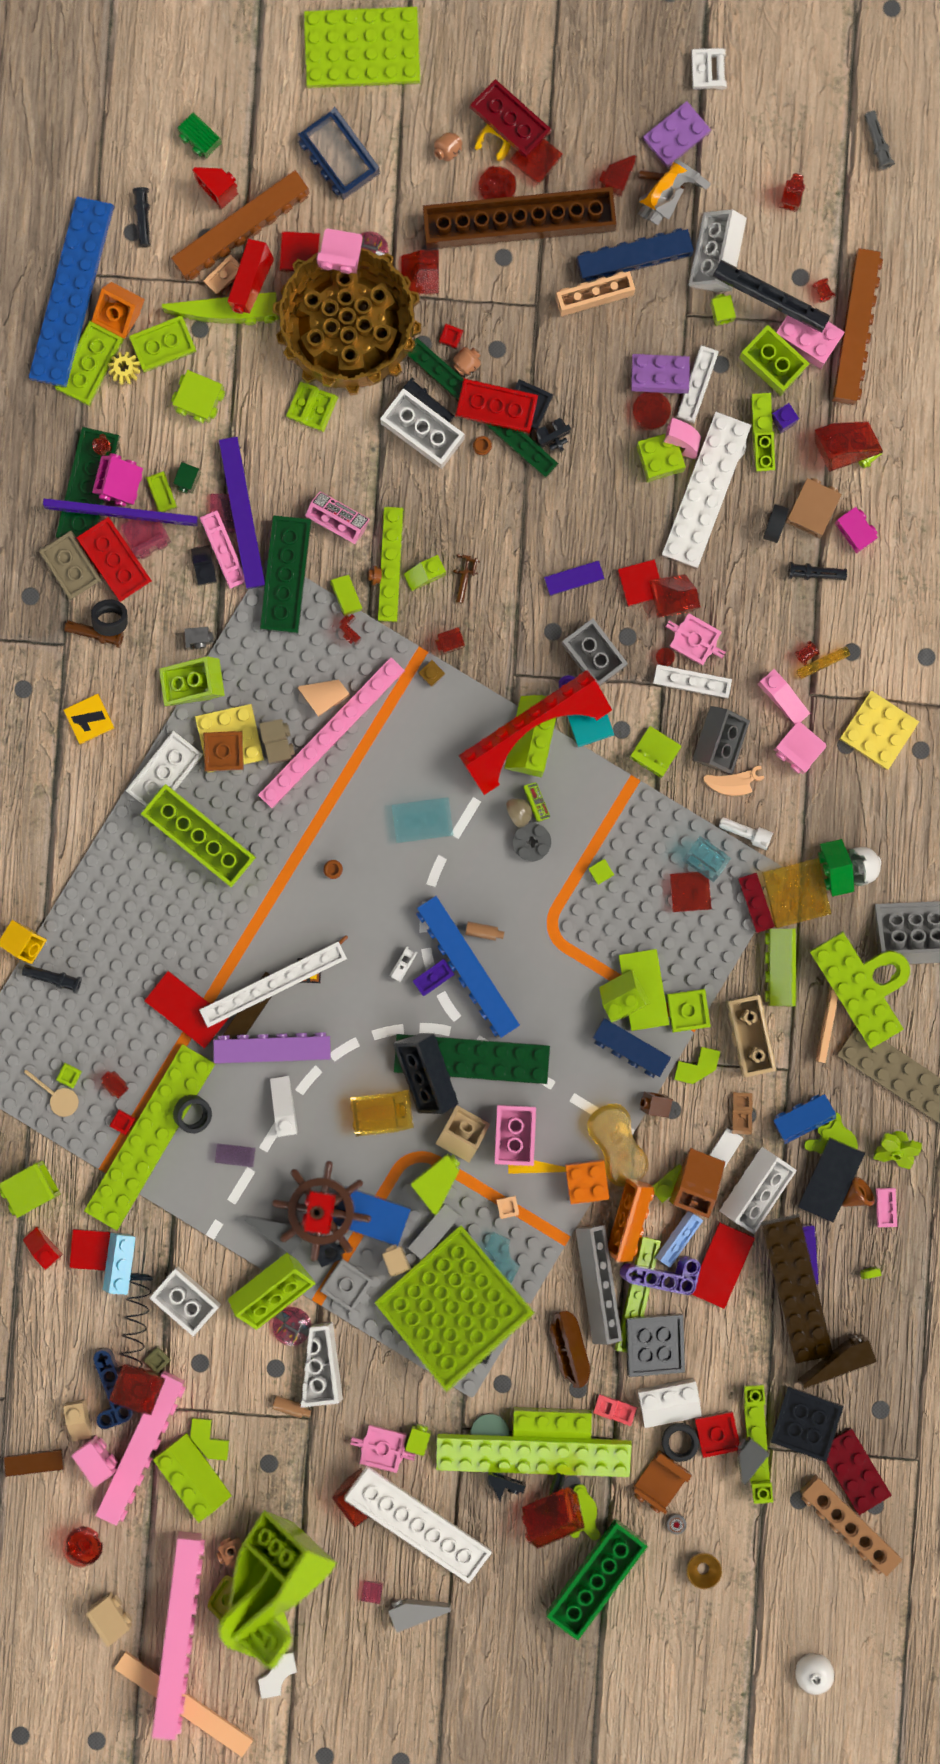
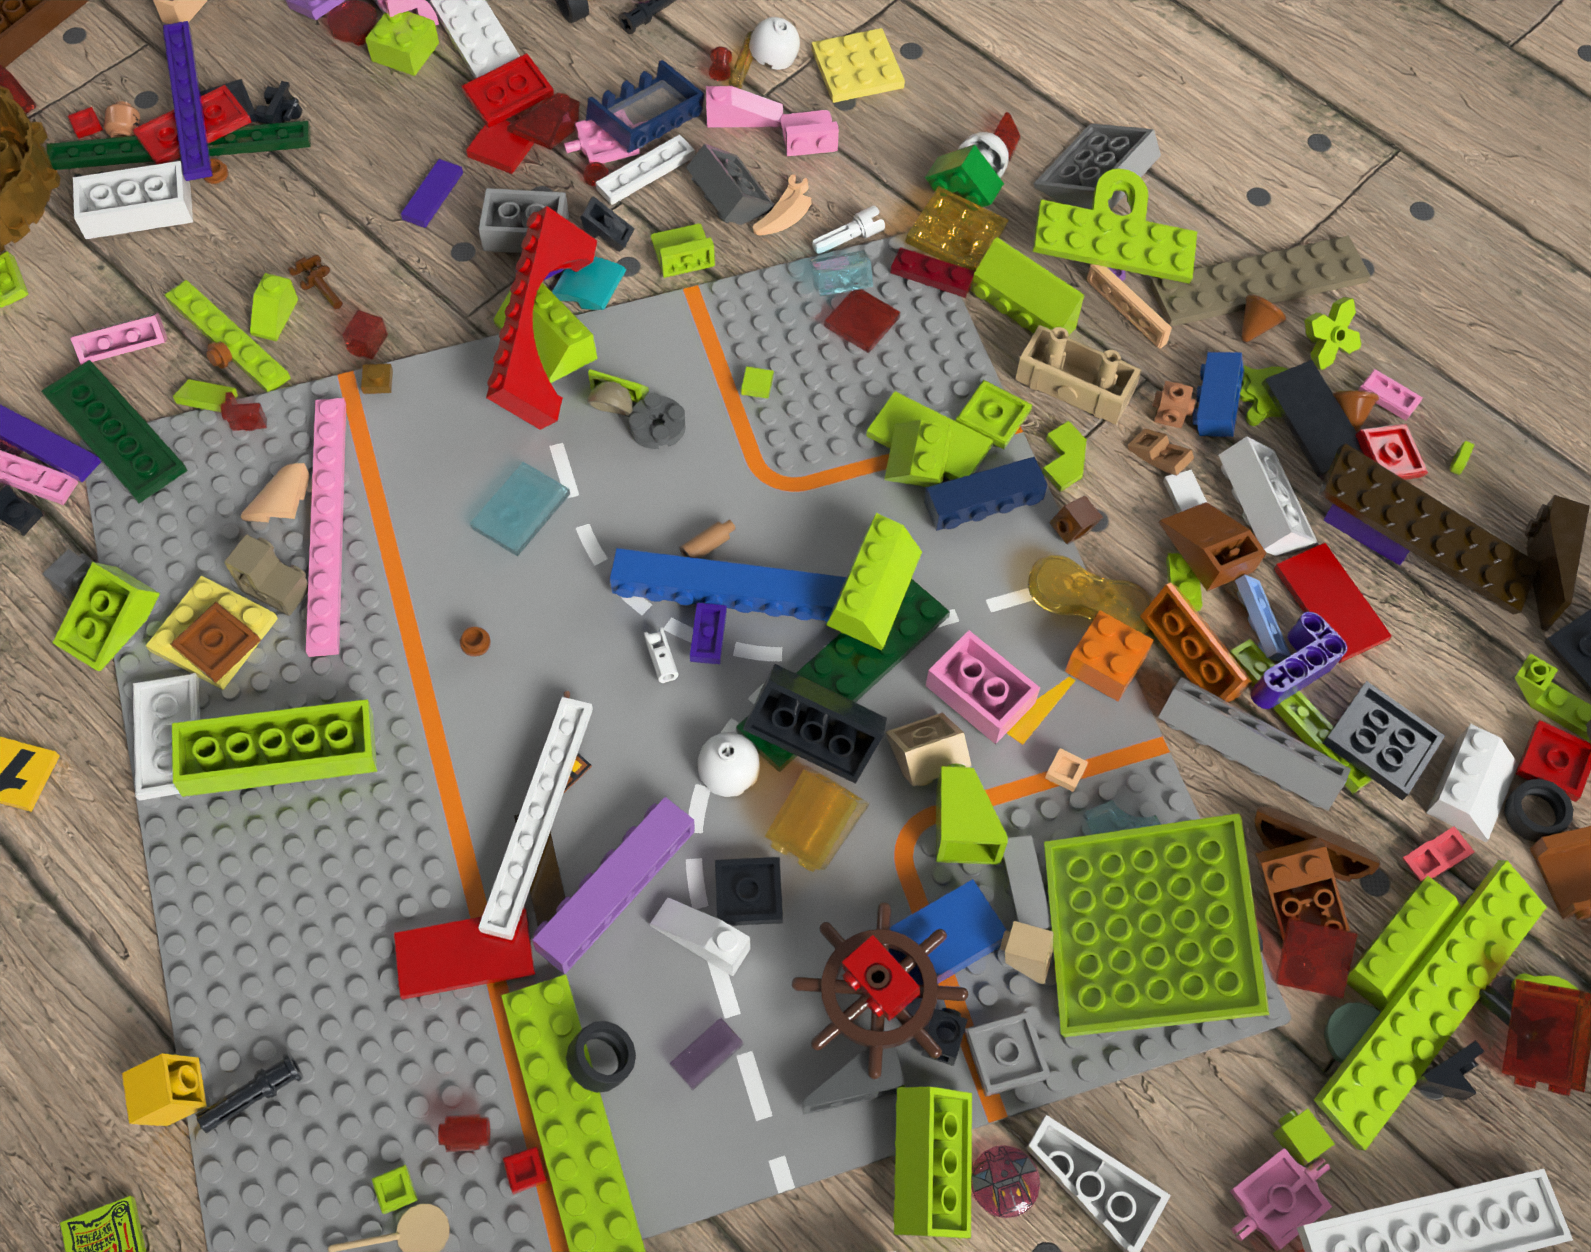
camera: 50 degrees left, 25 degrees down
(321, 1110) = (749, 891): none -> black plate
(382, 1039) = (728, 764): none -> white cylinder
(508, 388) = (187, 101): none -> dark purple tile
(509, 1389) = (1316, 958): none -> clear red tile
(524, 1039) = (876, 582): none -> lime slope
(536, 1361) = (1302, 885): none -> dark orange slope
(632, 700) = (603, 222): none -> black slope
(676, 555) = (507, 90): none -> red tile
(732, 646) = (647, 110): none -> dark blue window
(771, 1094) = (1173, 404): none -> nougat brick
(843, 1234) = (1393, 449): none -> tile
(848, 672) = (775, 43): none -> white cylinder
(879, 1102) = (1260, 317): none -> dark orange hat
(895, 862) = (1008, 133): none -> clear red slope

